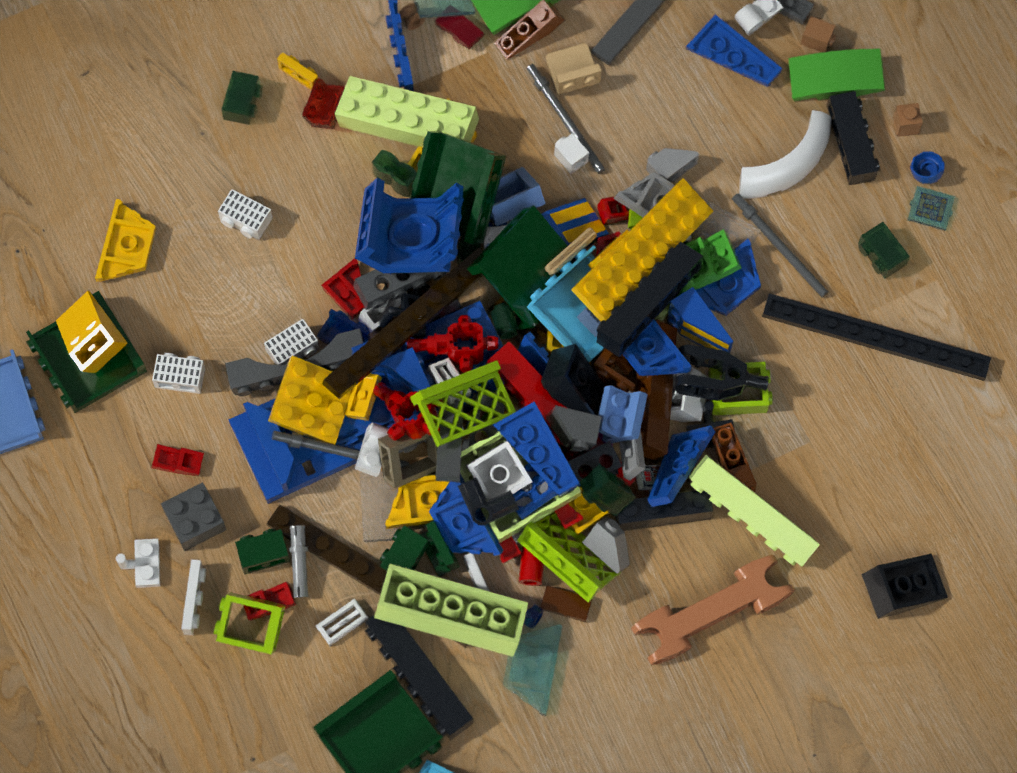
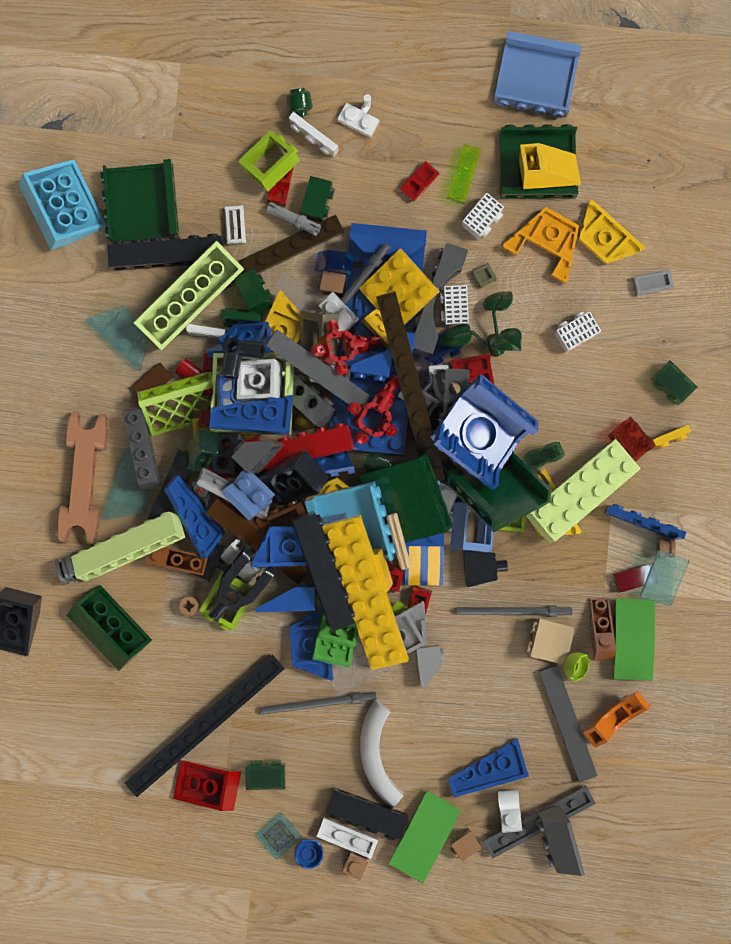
camera: 125 degrees right, 15 degrees up
(143, 419) = (464, 174): none -> clear neon green plate
(147, 174) = (653, 283): none -> light grey tile
(156, 296) = (553, 235): none -> light orange wing
(164, 633) = (299, 101): none -> dark green head
(193, 516) = (370, 166): dark grey brick -> none
(240, 339) = (484, 275): none -> olive tile
(302, 260) = (497, 343): none -> dark green plant
(322, 492) = (334, 262): none -> clear blue slope
(344, 481) = (331, 282): none -> medium nougat brick
(437, 378) = (349, 397): white tile -> none
(451, 388) = (337, 381): lime fence -> none
(533, 616) = (156, 352): clear blue tile -> none
(546, 167) = (482, 567): none -> black torso
(571, 153) = (483, 596): white brick -> none
(581, 32) = (576, 666): none -> lime hair
(609, 544) = (171, 435): light grey slope -> none
(644, 562) = (142, 449): none -> dark grey brick
(692, 557) = (126, 495): none -> clear light blue wing
(770, 428) = (192, 604): none -> medium nougat wheel
(815, 562) = (65, 570): none -> dark grey wheel
(846, 487) = (109, 627): none -> dark green slope
(887, 143) = (347, 837): none -> white plate
(932, 299) = (207, 785): none -> red slope

